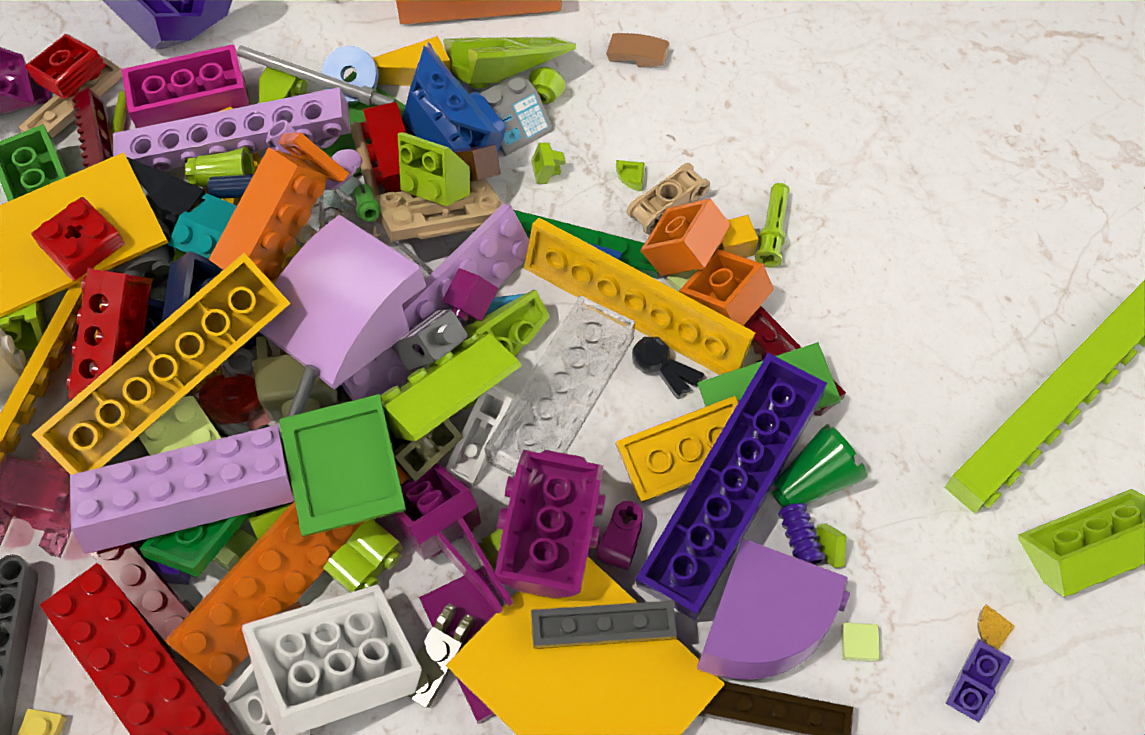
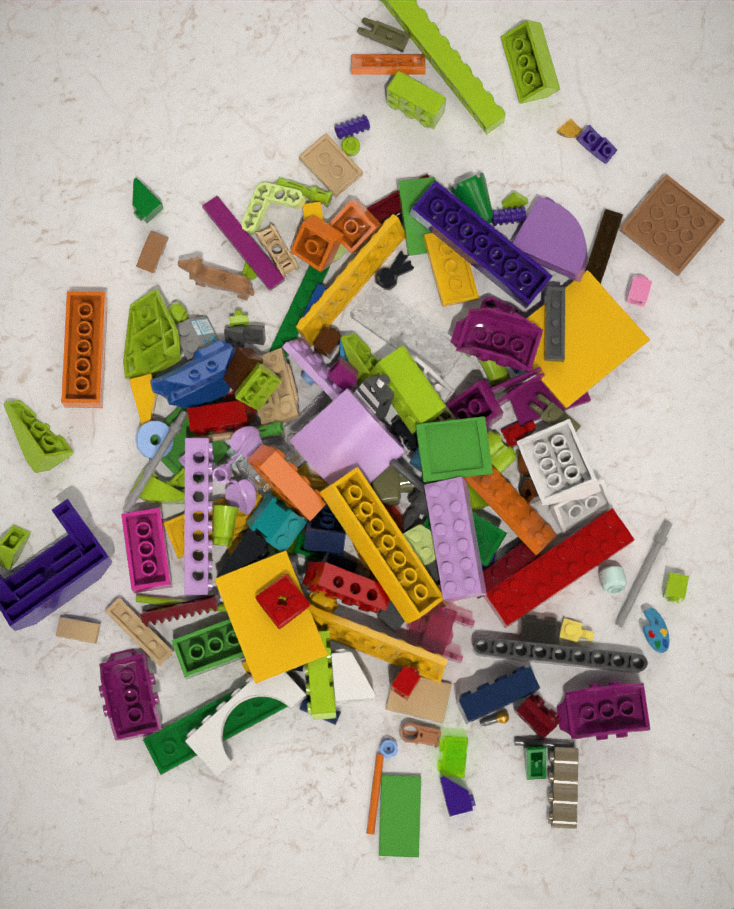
camera: 85 degrees left, 15 degrees up
(36, 671) = (539, 630): none -> clear smoke brick
(66, 66) = (107, 630): red brick -> none
(82, 25) = (78, 630): none -> tan slope
(228, 186) = (244, 509): dark blue piece -> none
(302, 147) = (248, 453): orange tile -> none
(403, 594) = (516, 433): none -> red plate
(526, 168) = (242, 334): none -> dark grey slope
(530, 276) = (327, 342): none -> reddish brown brick
(608, 121) = (217, 278): none -> medium nougat animal
(671, 154) = (243, 243): none -> magenta tile
(710, 28) = (145, 204): none -> green slope
(754, 172) = (269, 197): none -> yellowish green beam
(826, 258) = (331, 165): none -> tan tile
(860, 642) = (570, 198): yellowish green tile -> none
(865, 282) = (351, 146): none -> lime tile
(897, 276) = (351, 127): none -> dark purple piece
(968, 355) = (415, 100): none -> lime brick
(1020, 311) = (388, 64): none -> orange tile
(1071, 307) = (384, 34): none -> olive hinge

